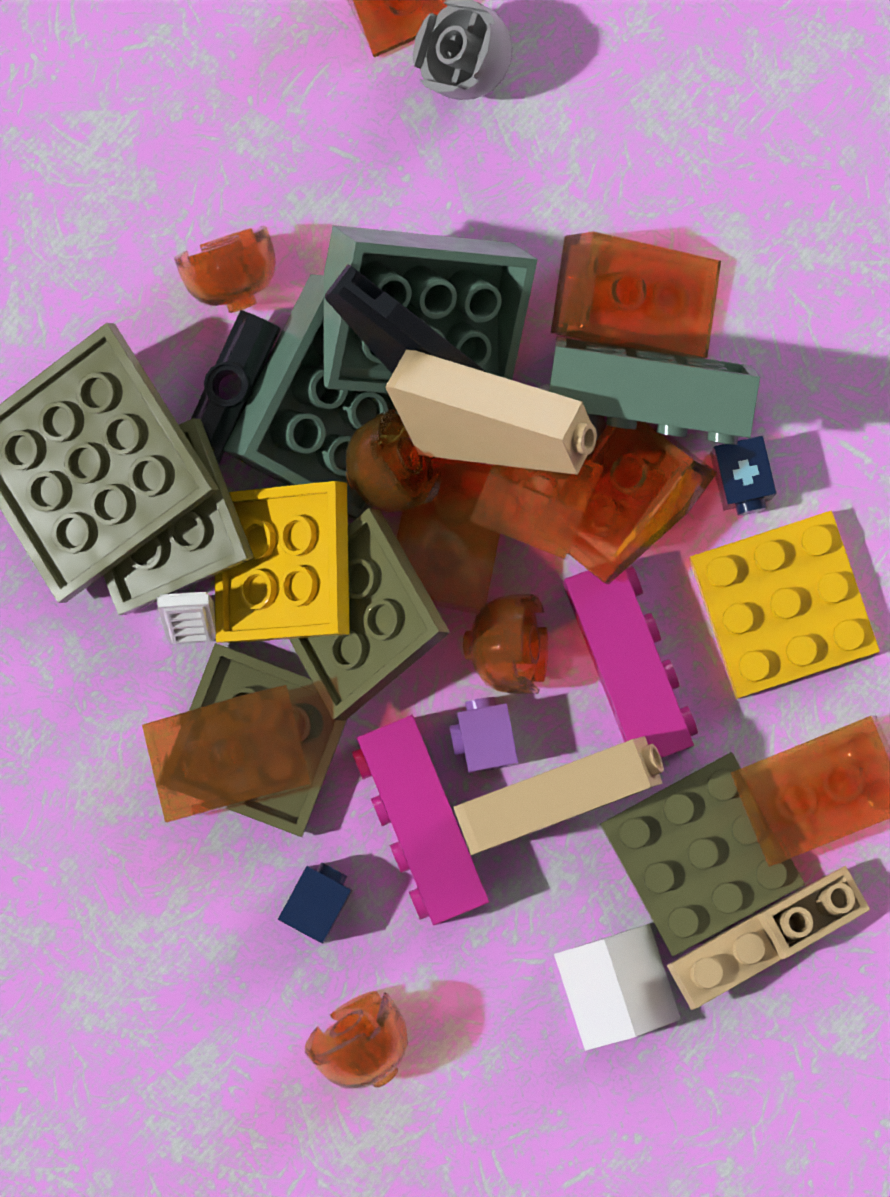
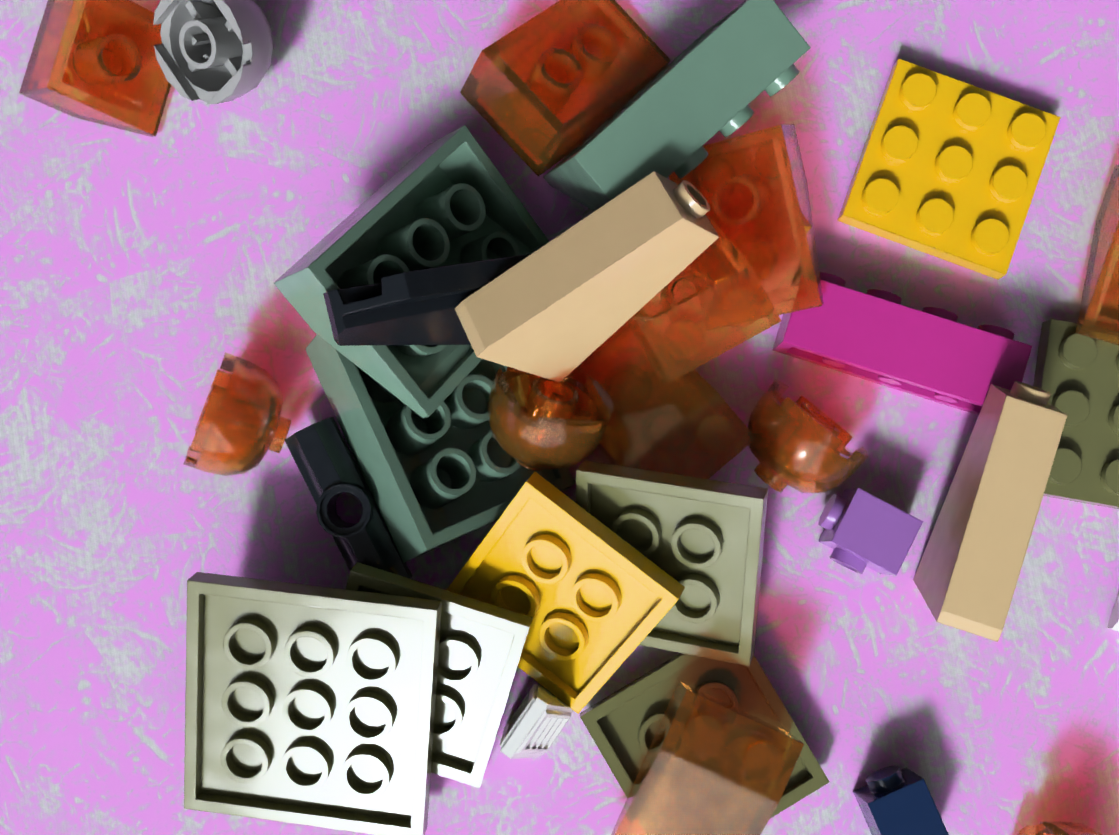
camera: 55 degrees left, 0 degrees up
(422, 820) = (902, 655): dark pink brick -> none
(743, 475) = (815, 107): dark blue brick -> none

